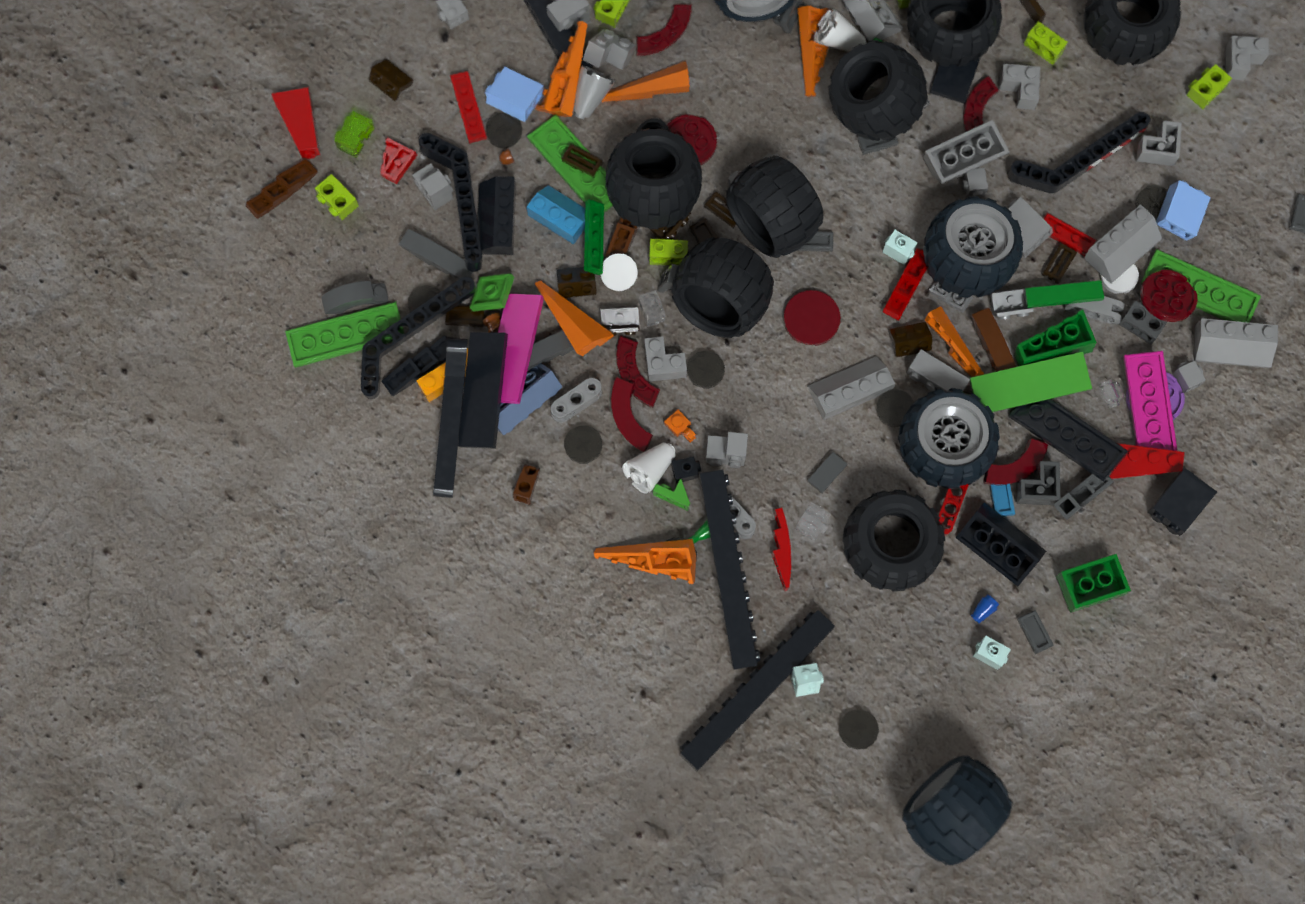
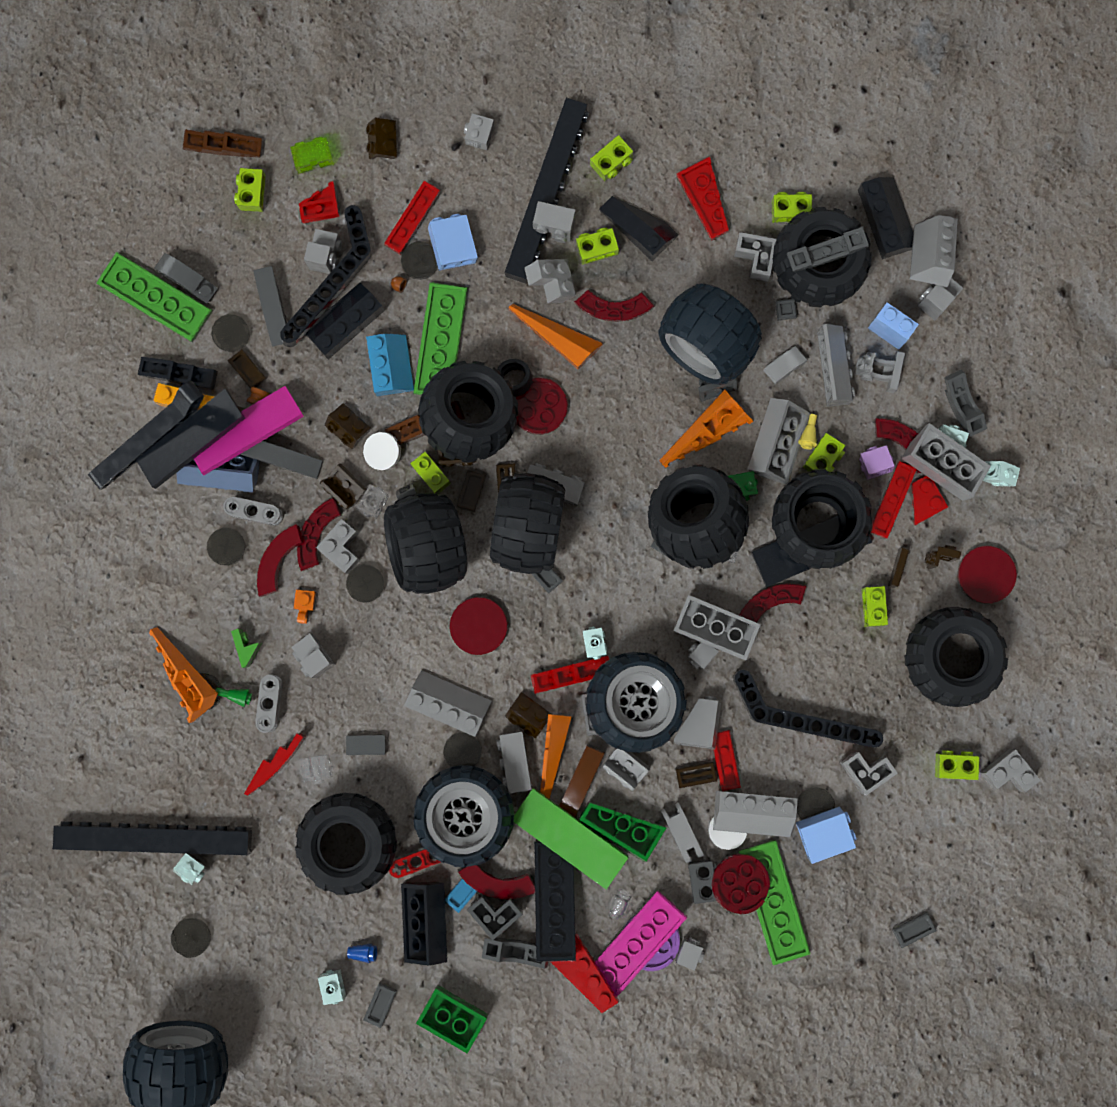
camera: 55 degrees right, 10 degrees up
(298, 115) = (286, 105): red slope -> none
(414, 328) = (181, 337): black beam -> none
(492, 292) = (278, 373): bright green tile -> none
(526, 484) = (157, 533): reddish brown leg -> none
(561, 93) = (487, 274): orange wedge -> none
(579, 328) = (306, 463): orange wedge -> none
(590, 91) = (506, 296): light grey cone -> none
(592, 173) = (449, 357): dark brown tile -> none
(594, 237) = (389, 408): green tile -> none
(649, 466) = (250, 611): white cone -> none
(685, 475) = (268, 631): black brick -> none
(728, 569) = (219, 739): black brick -> none
(837, 32) = (729, 441): white cone -> none
(1024, 81) = (825, 620): light grey brick -> none
(1064, 294) = (666, 803): green tile -> none
(1182, 502) = (575, 1033): black slope -> none
(1235, 343) = (750, 967): light grey slope -> none

